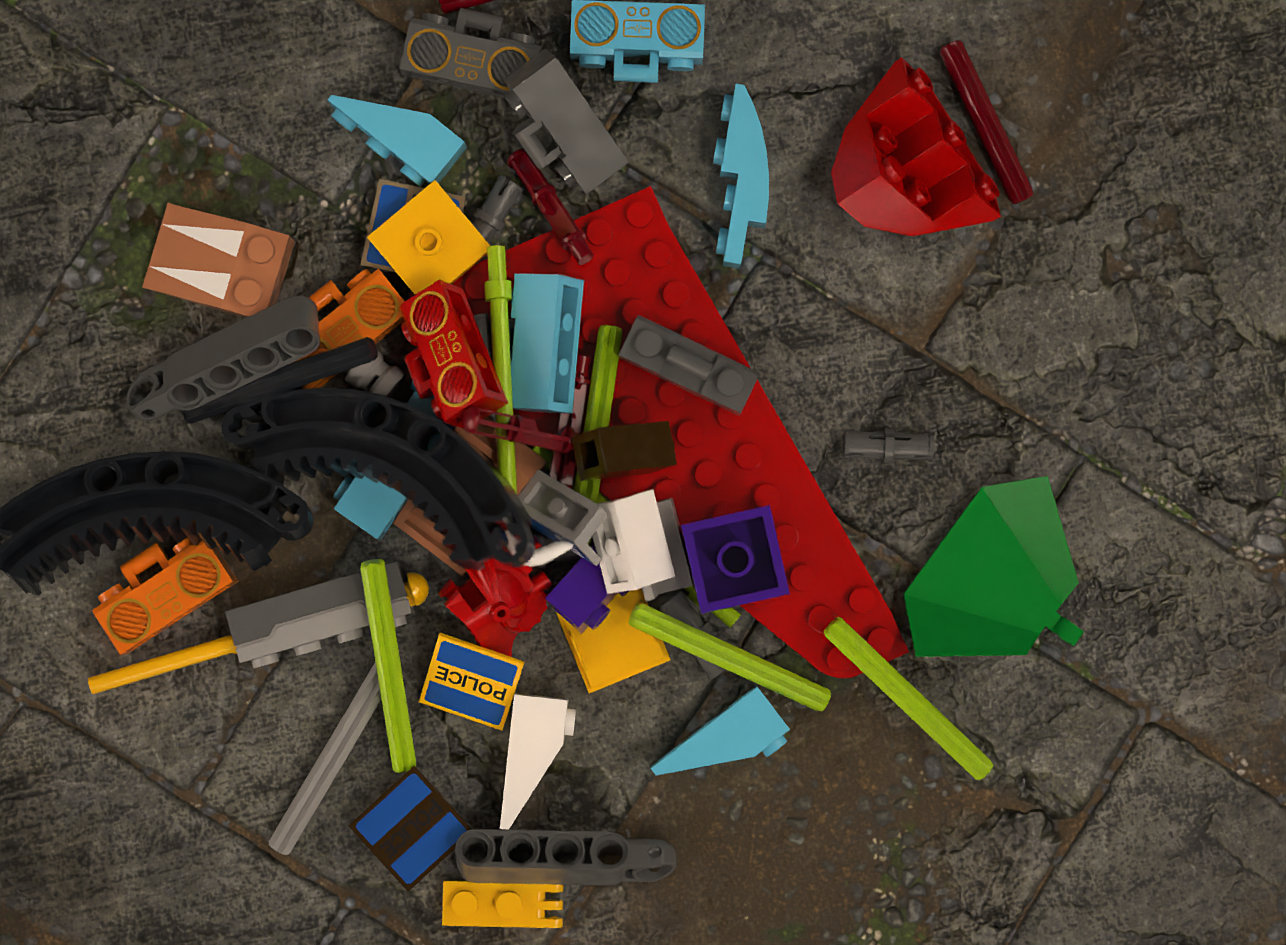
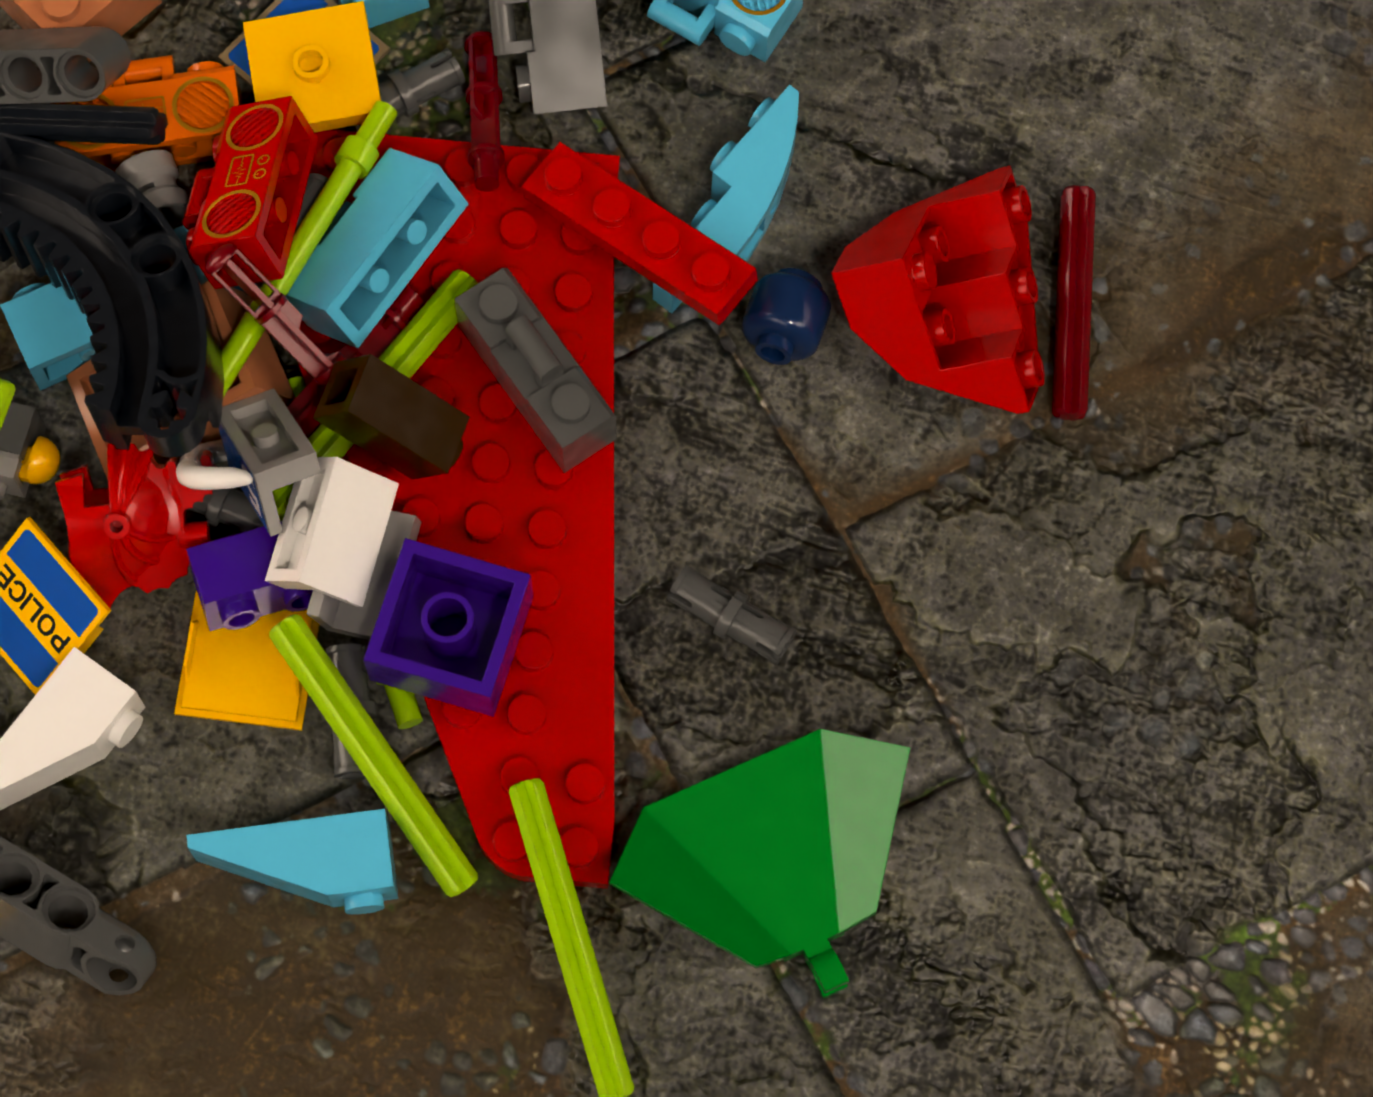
camera: 25 degrees right, 15 degrees down
(699, 238) = (640, 233): none -> red plate
(816, 236) = (786, 314): none -> dark blue head

